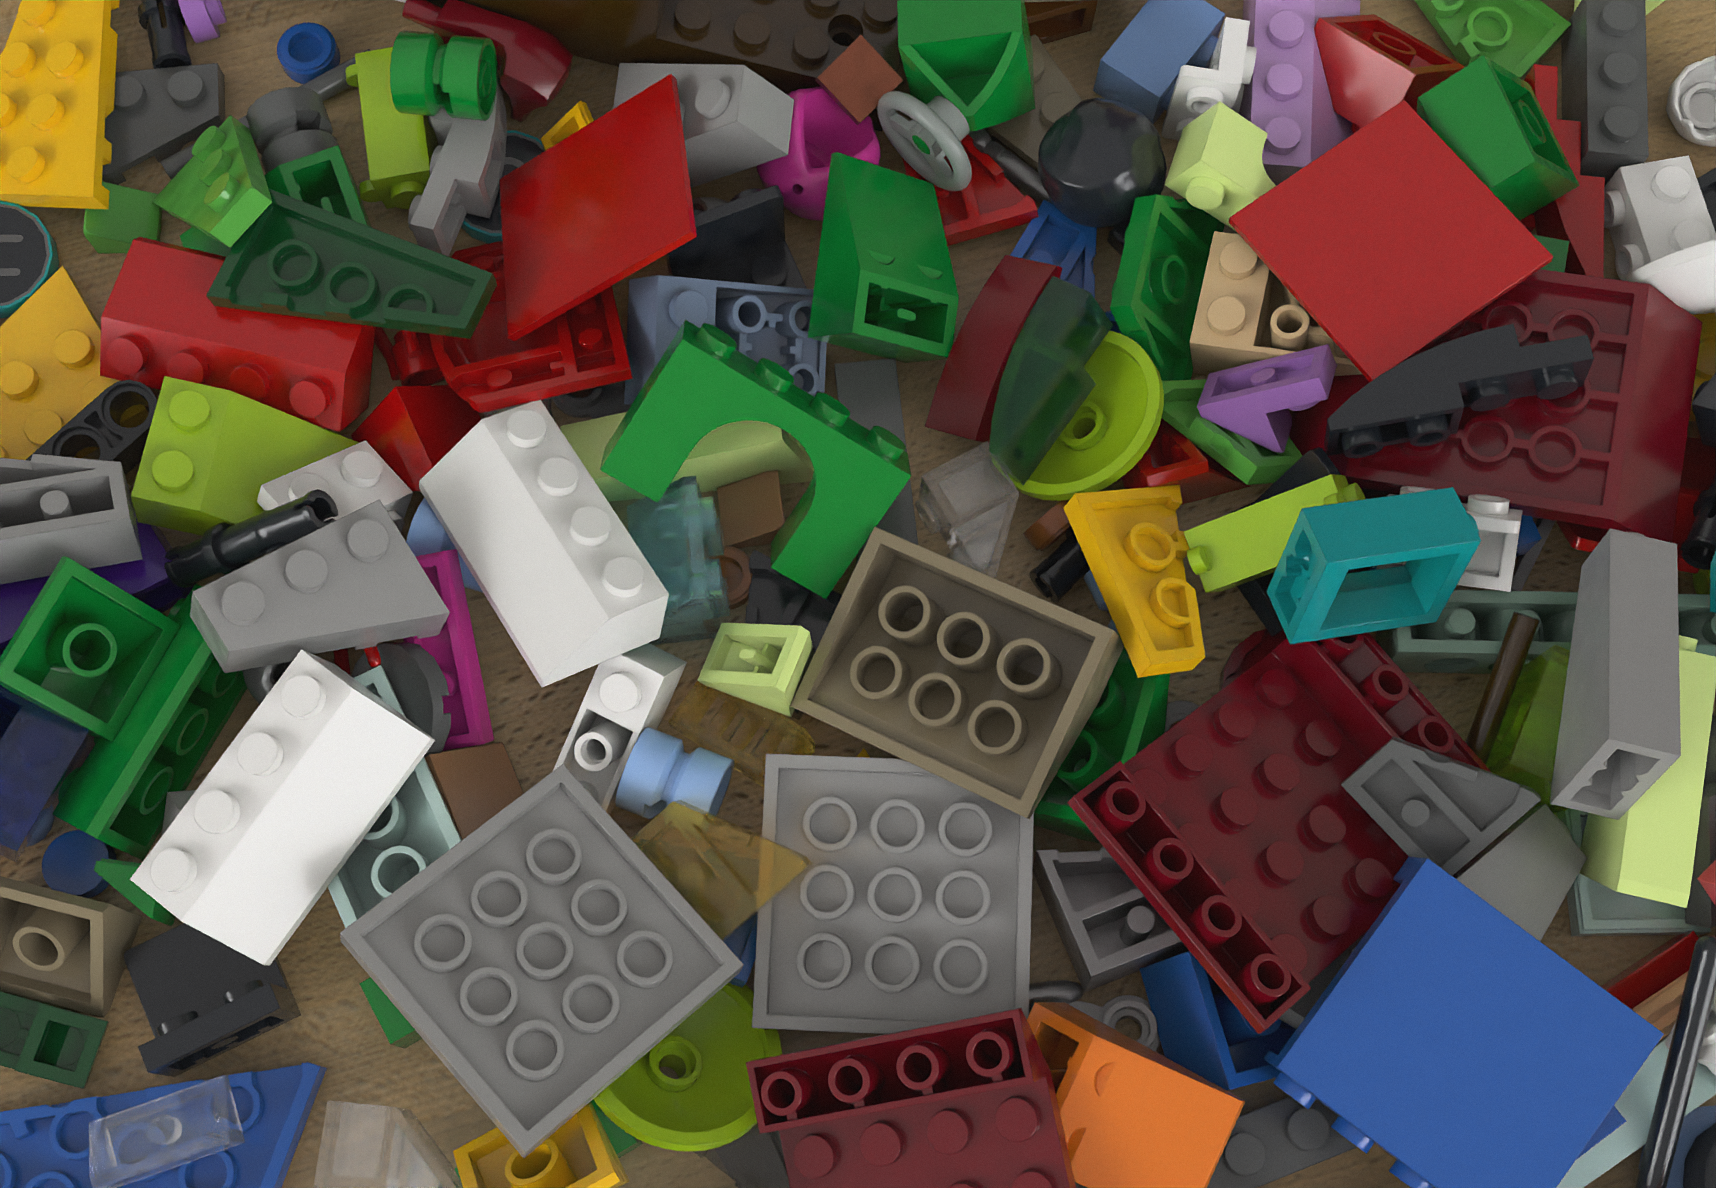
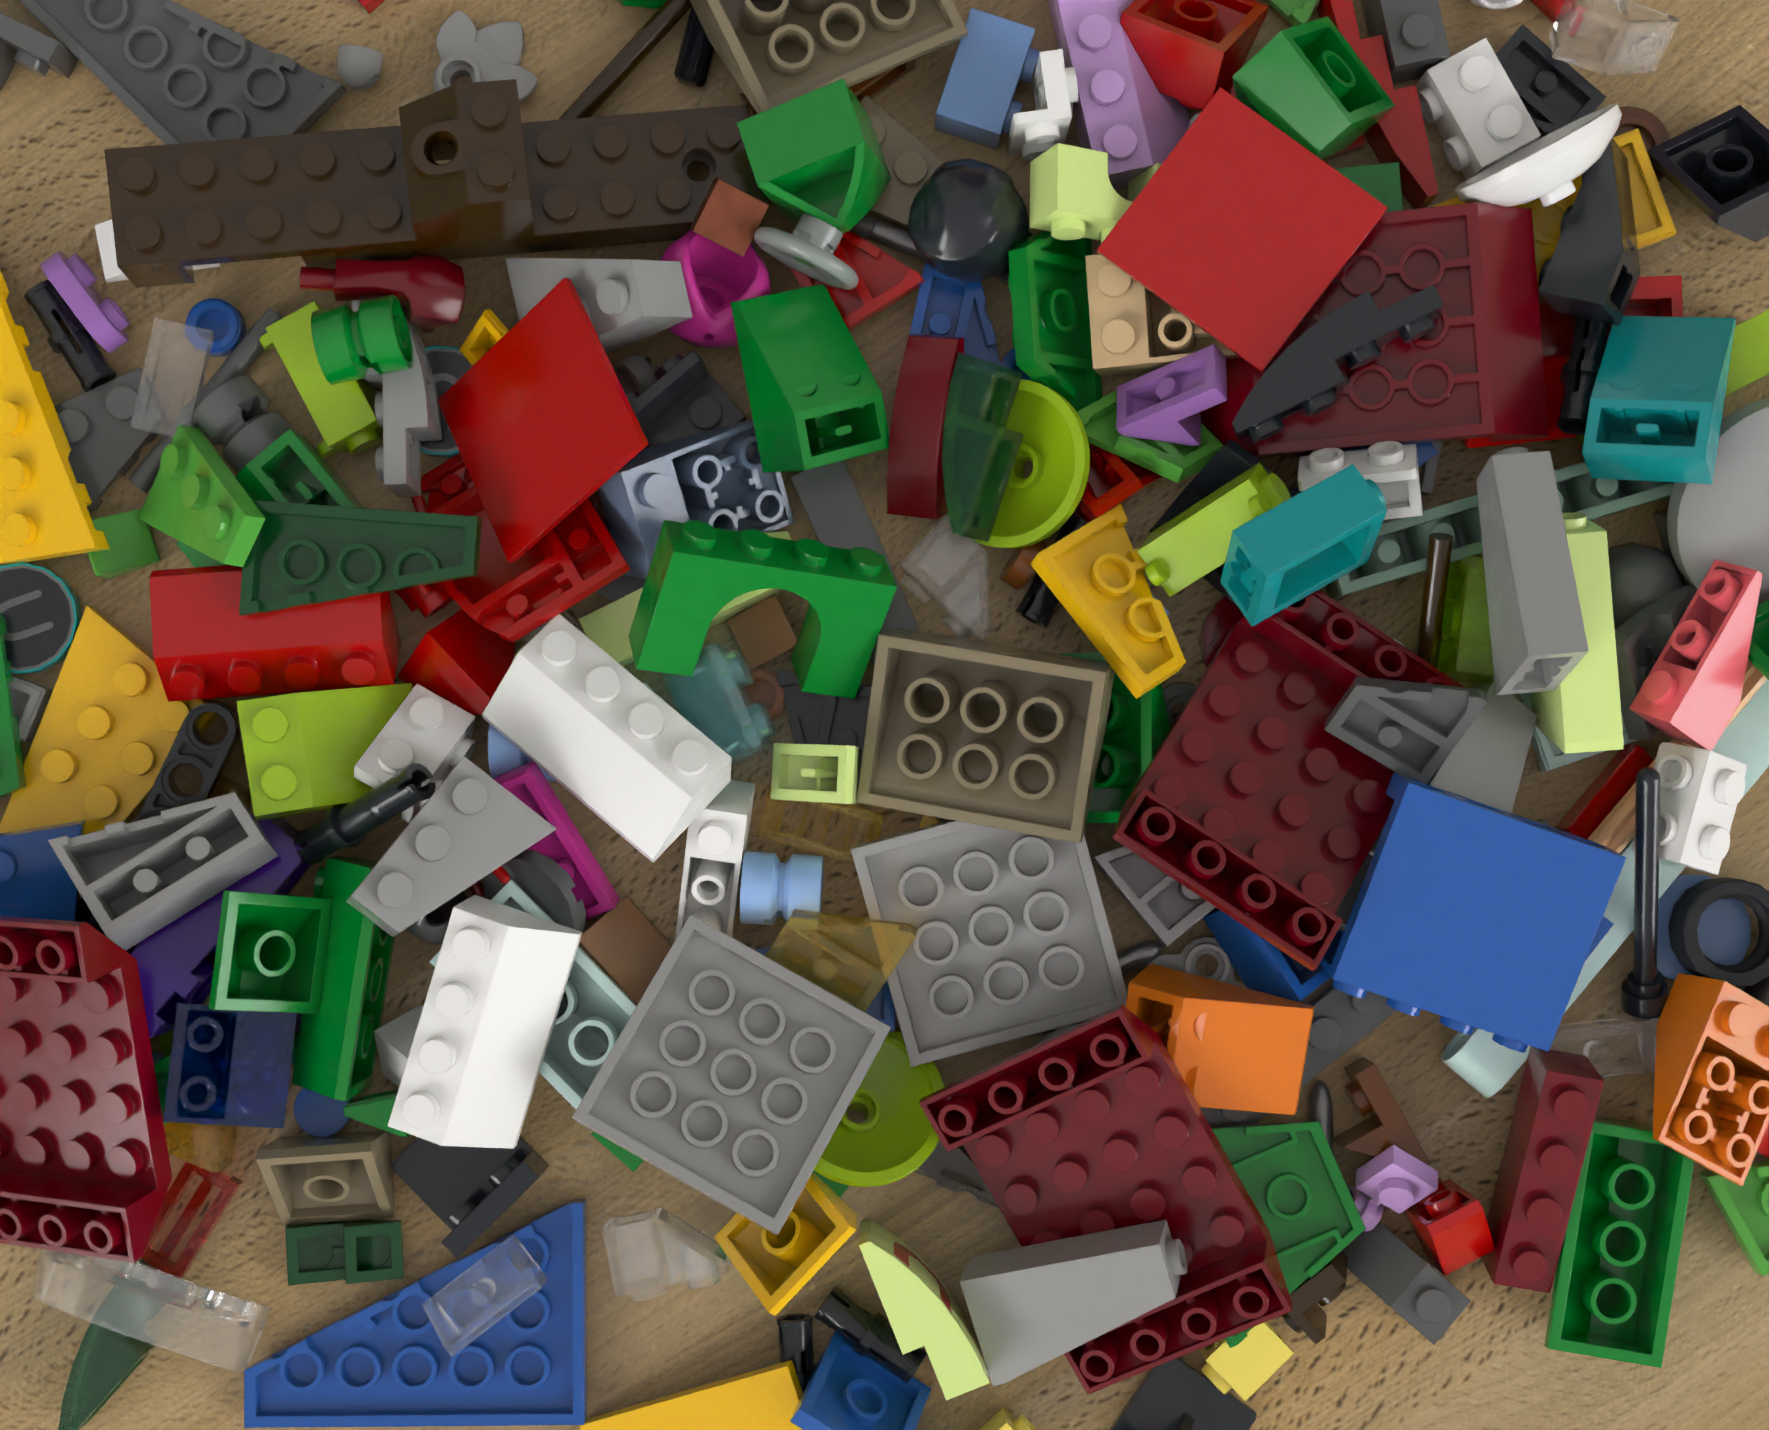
camera: 15 degrees left, 15 degrees up
(247, 69) = (172, 377): none -> clear tile

